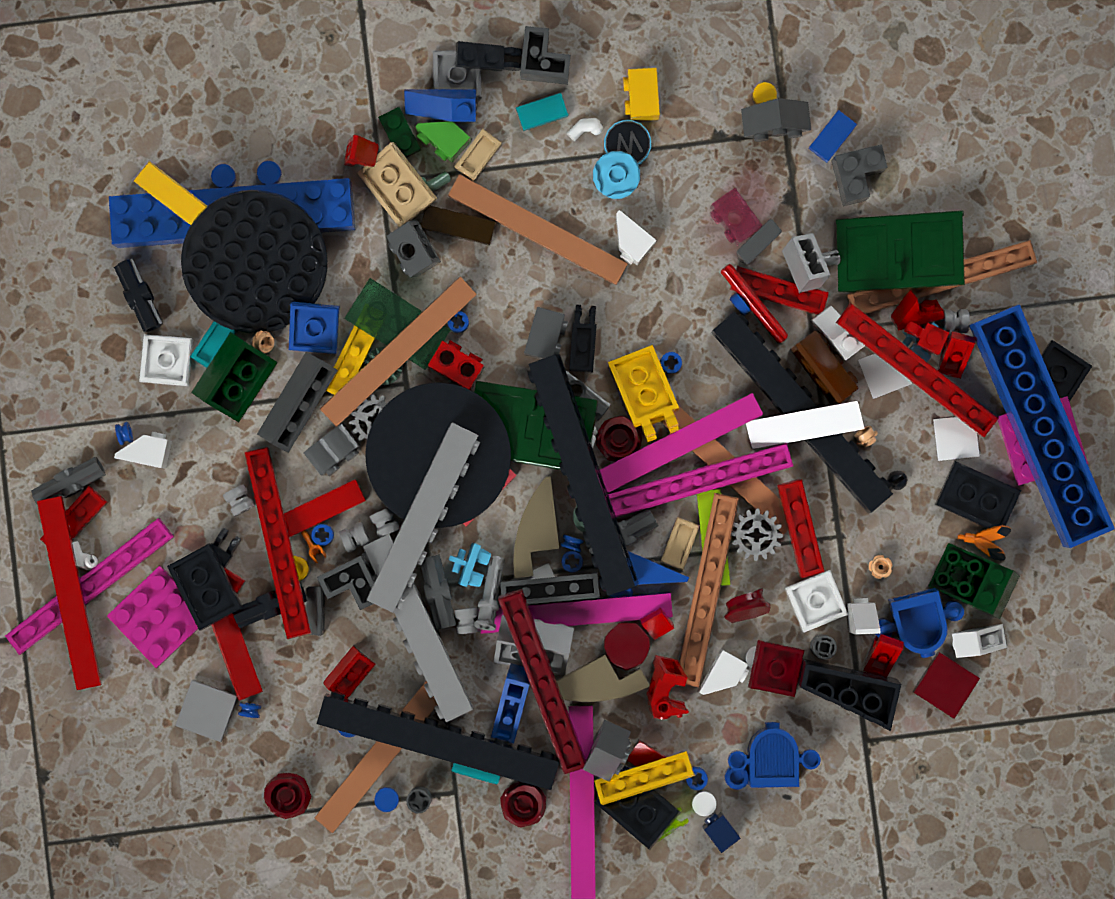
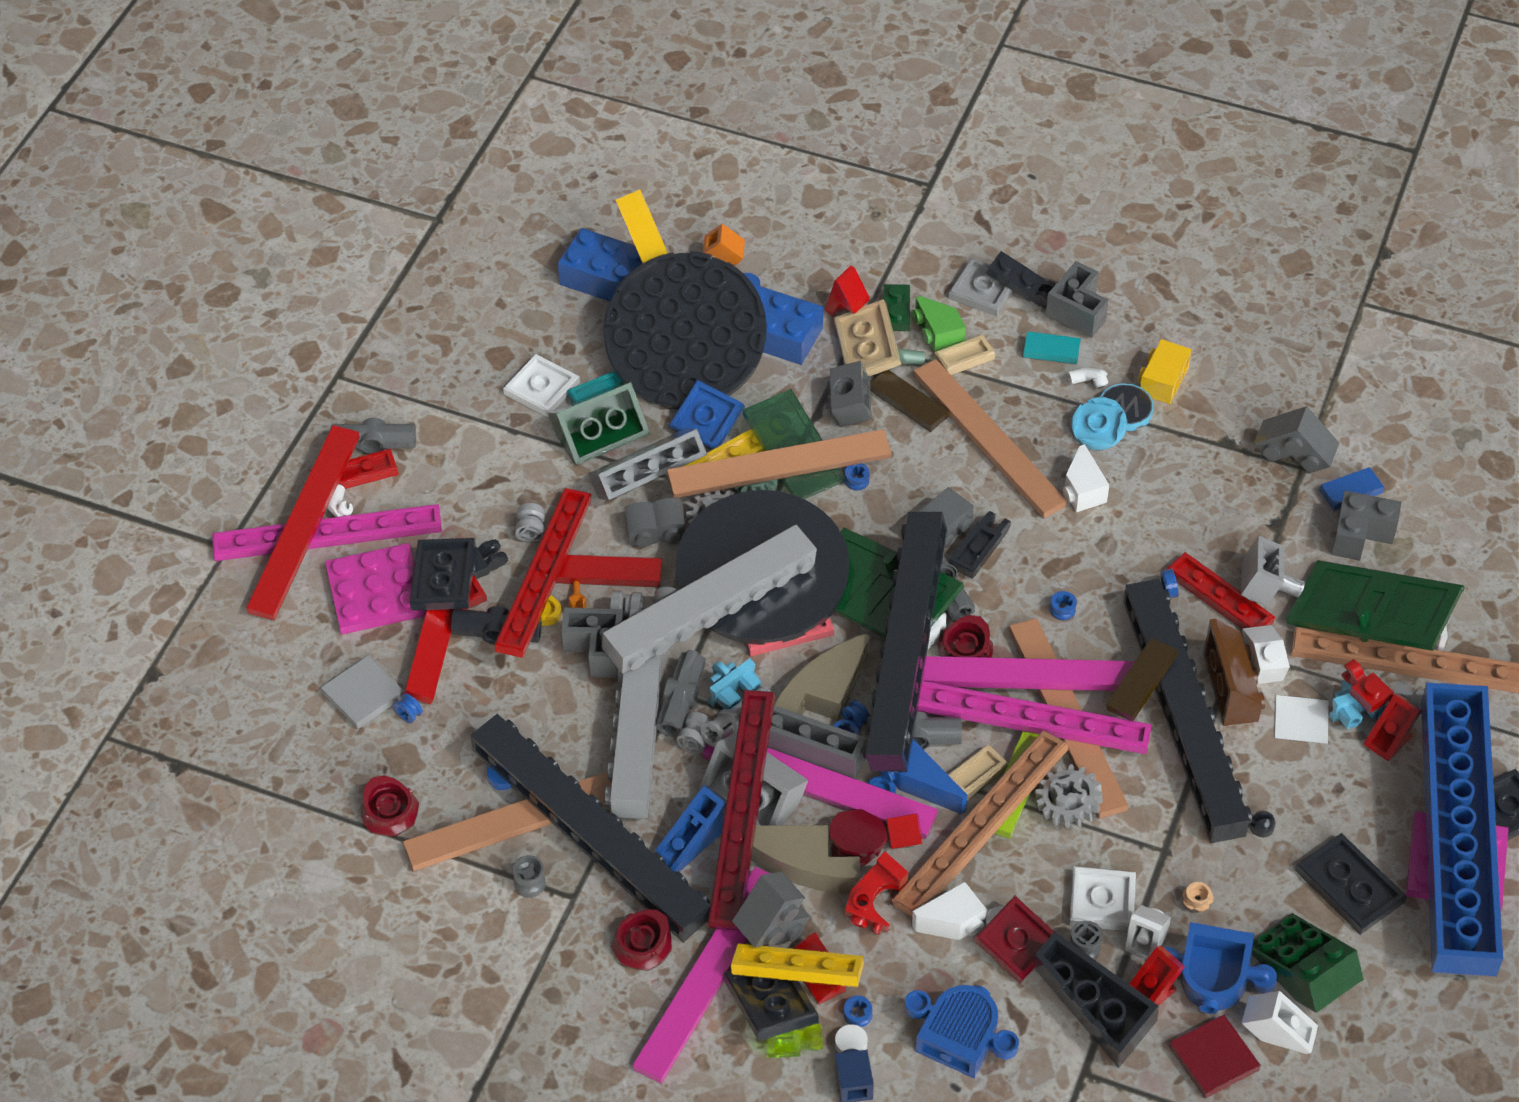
camera: 30 degrees right, 35 degrees down
(124, 433) = (457, 420): blue bush -> none
(138, 295) = (552, 321): black piece -> none
(147, 450) = (468, 443): white slope -> none
(232, 150) = (724, 244): none -> orange brick
(263, 341) = (653, 406): light nougat plate -> none
(316, 609) = (541, 655): dark grey slope -> none
(318, 540) = (598, 599): blue bush -> none
(349, 672) = (543, 725): red slope -> none
(386, 799) = (493, 864): blue tile -> none
(442, 104) = (966, 298): blue slope -> none
(453, 370) = (834, 501): red brick -> none
(474, 773) = (610, 879): teal tile -> none
(645, 390) = (1020, 612): yellow tile -> none
(734, 203) = (1206, 508): clear pink brick -> none
(736, 779) = (904, 1033): blue tile -> none
(746, 607) = (1017, 856): dark red hat -> none
(754, 303) = (1186, 588): red axle -> none
(758, 242) = (1219, 535): dark grey slope -> none
(765, 413) = (1141, 679): none -> dark brown tile
(801, 528) = (1123, 813): red tile -> none
(805, 425) = (1195, 708): white sticker -> none
(866, 436) = (1247, 763): light nougat plate -> none
(912, 311) = (1382, 672): red slope -> none
(916, 370) = (1340, 718): red tile -> none
(955, 439) = (1354, 816): white sticker -> none
(983, 540) = (1339, 924): orange piece -> none

